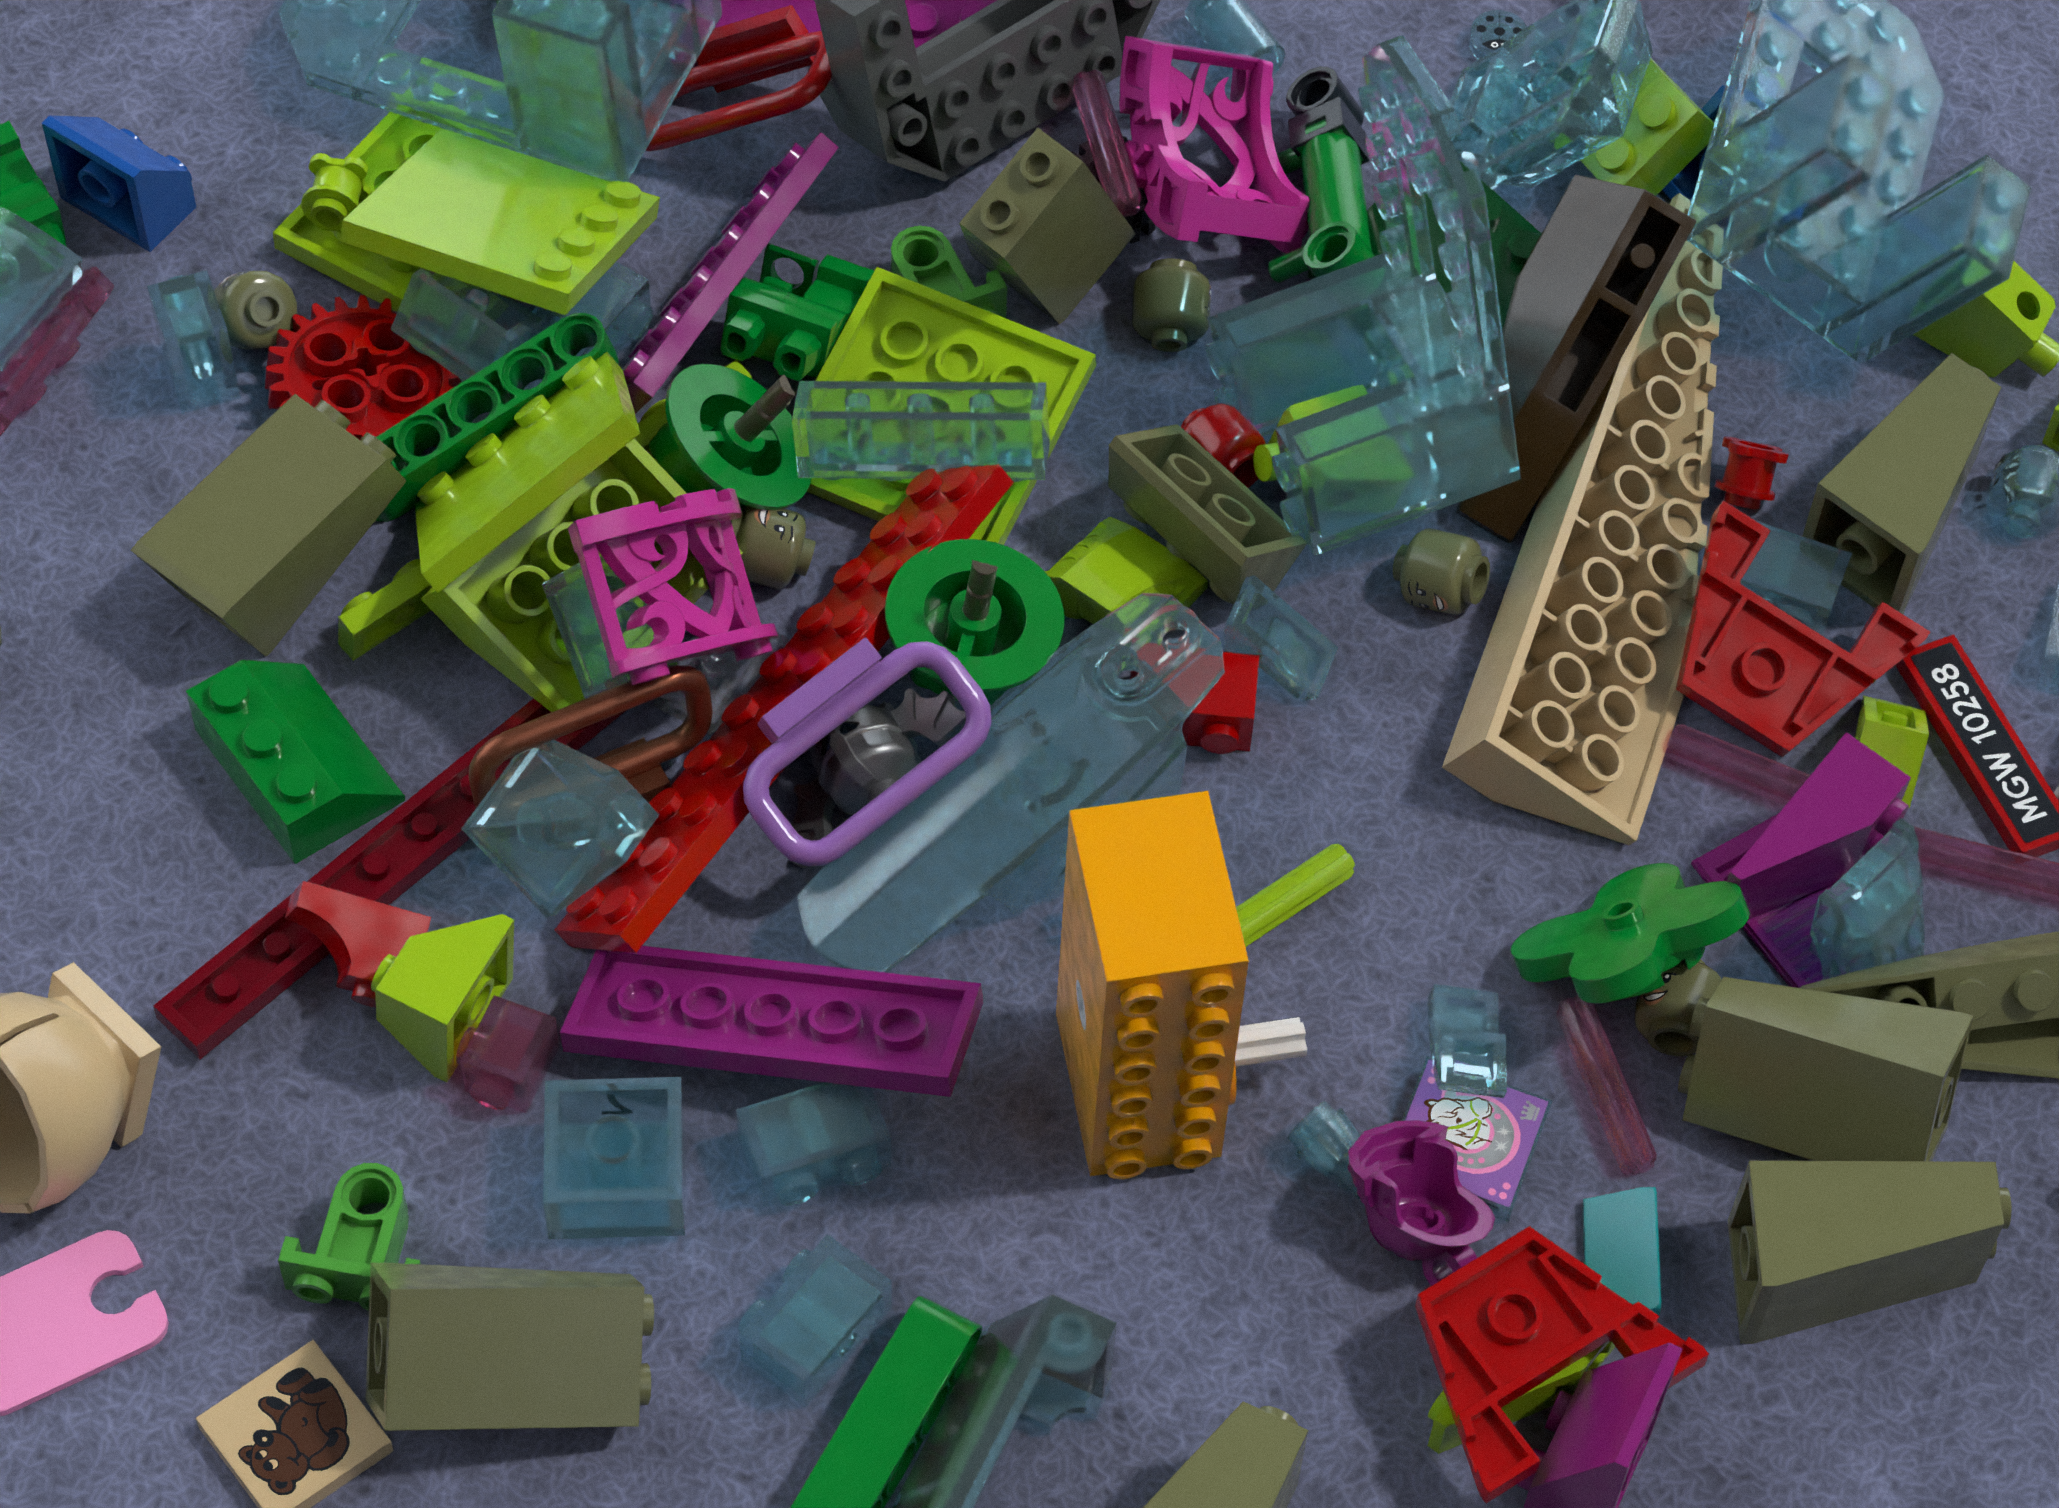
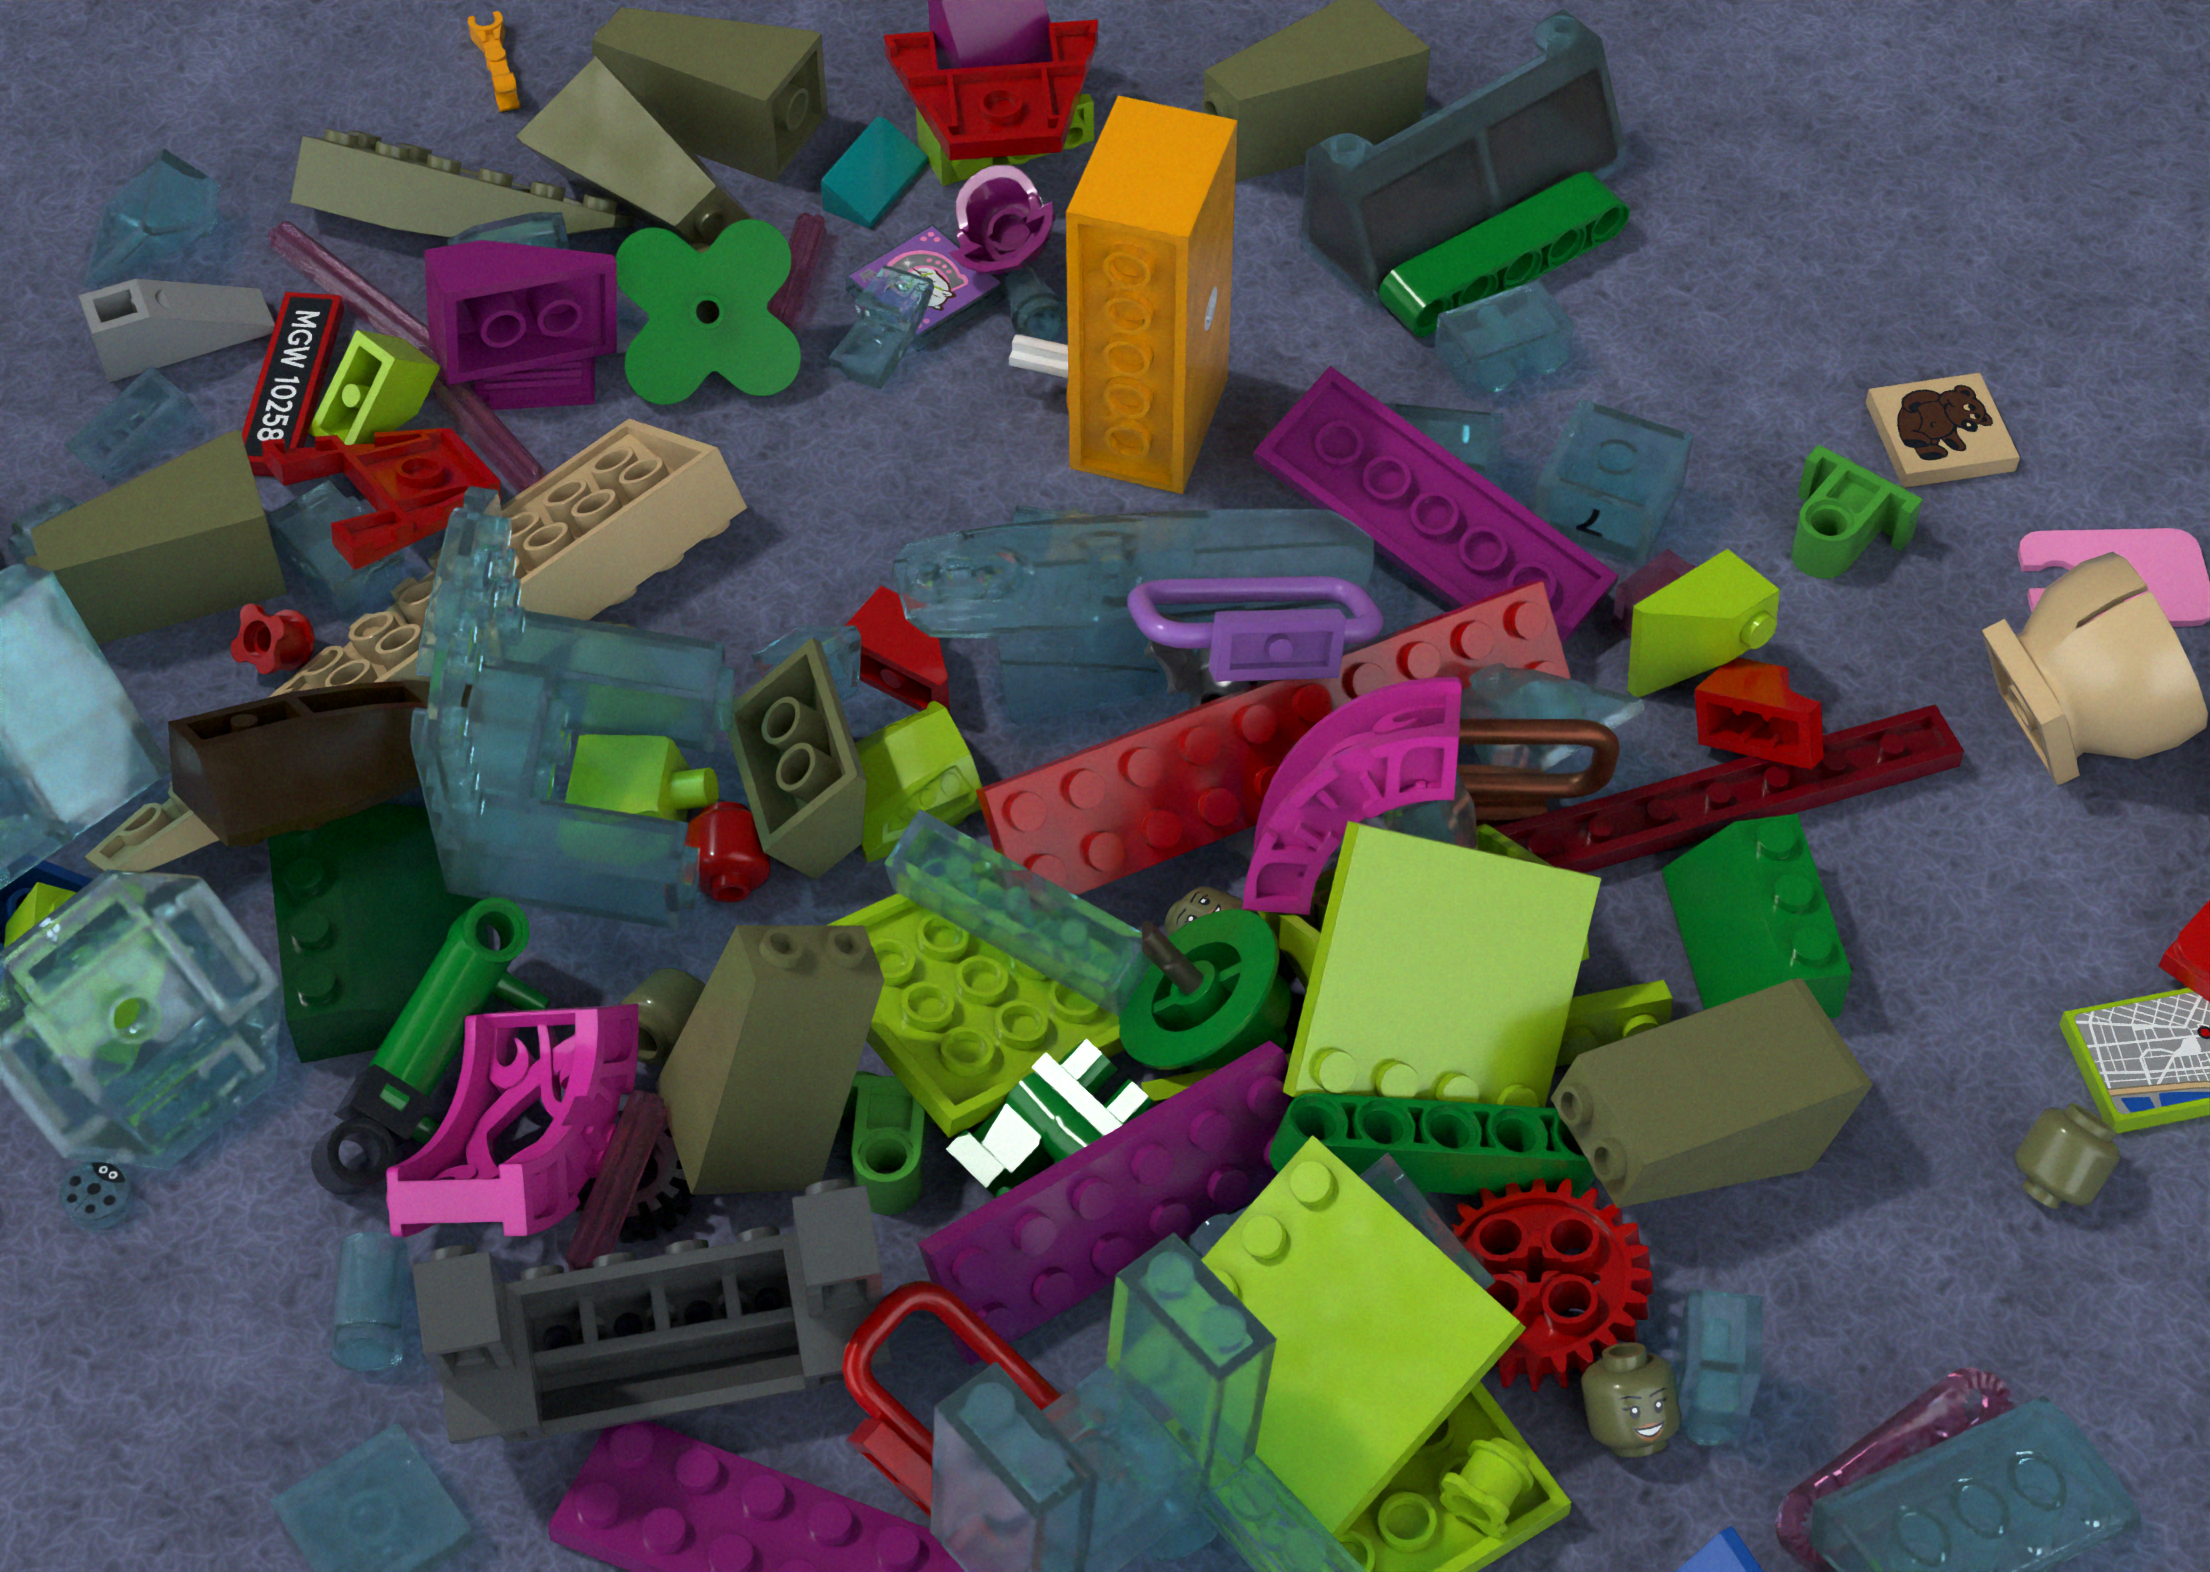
camera: 150 degrees left, 5 degrees down
(505, 1348) = (1778, 372): olive slope -> none
(982, 606) = (1088, 687): green piece -> none
(1294, 892) = (956, 489): lime axle -> none

